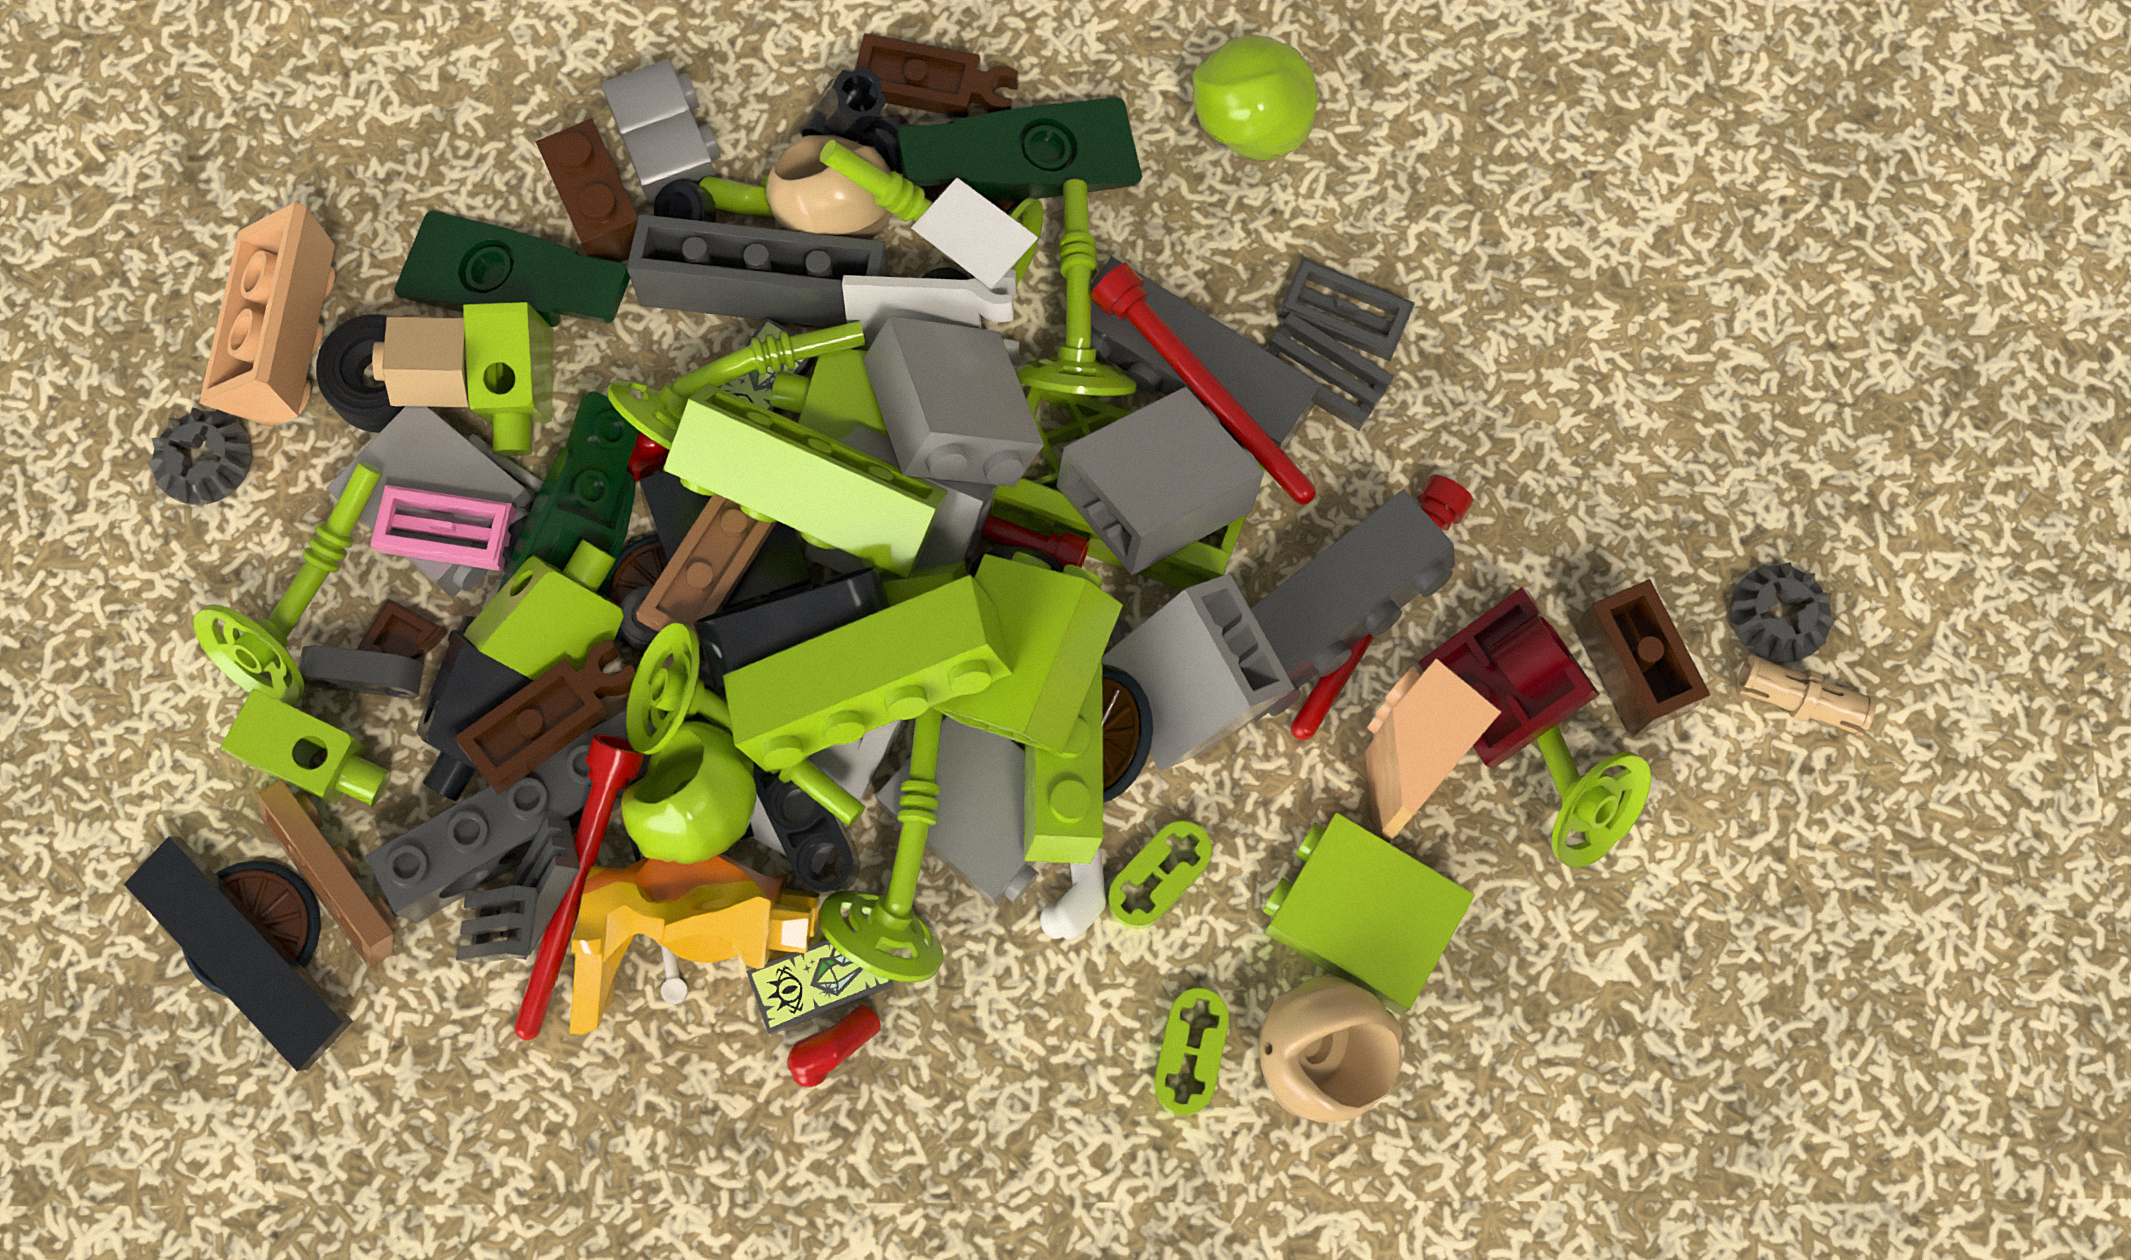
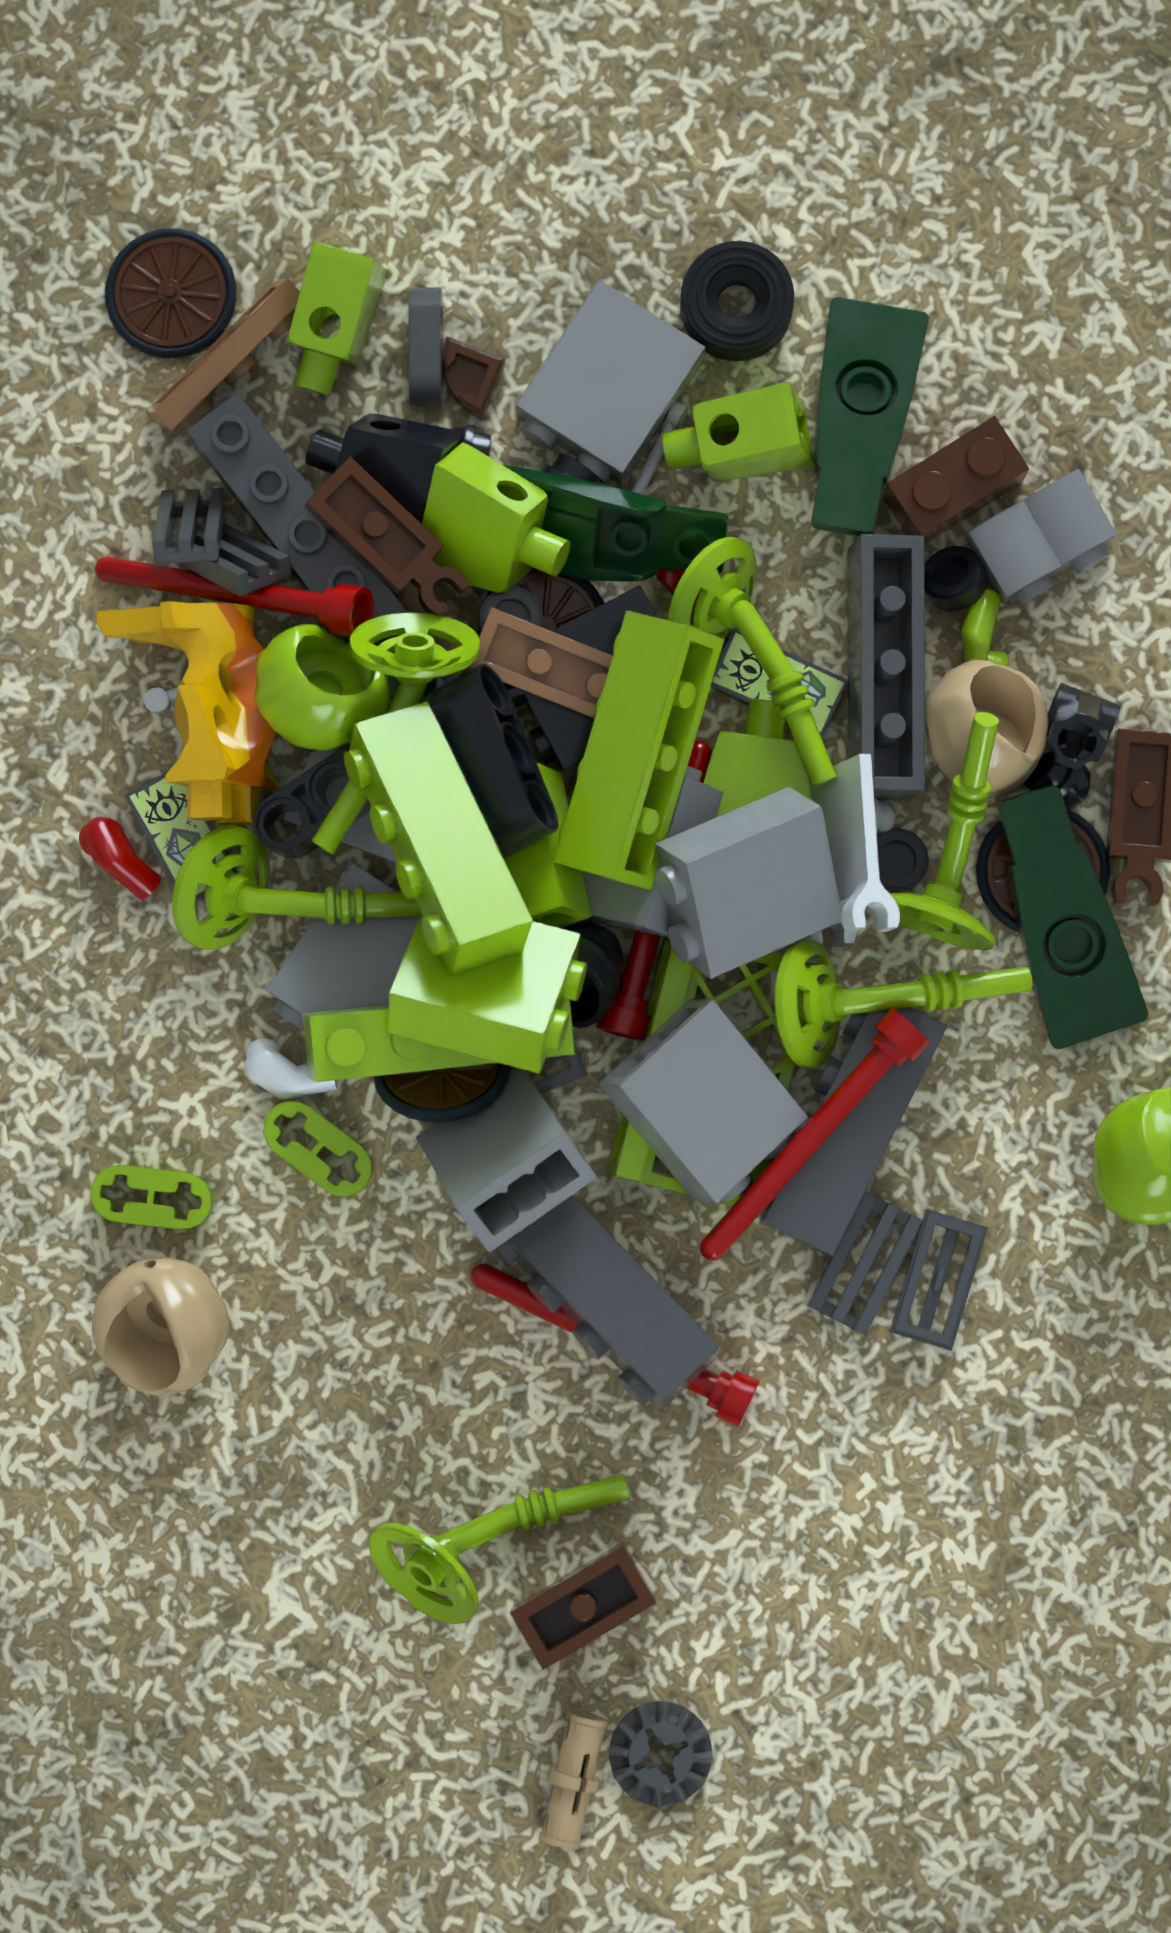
camera: 90 degrees right, 10 degrees up
(206, 480) = (649, 165): dark grey gear -> none
(238, 953) = (142, 288): black tile -> none
(265, 641) = (433, 247): lime dish -> none
(270, 318) = (771, 185): light nougat slope -> none
(423, 361) = (736, 350): tan brick -> none
(495, 537) = (566, 456): bright pink tile -> none
(974, 233) = (933, 879): white sticker -> none
(1366, 912) = (300, 1351): lime brick -> none
(1418, 741) = (450, 1383): light nougat slope -> none
(1520, 669) = (547, 1472): dark red plate -> none

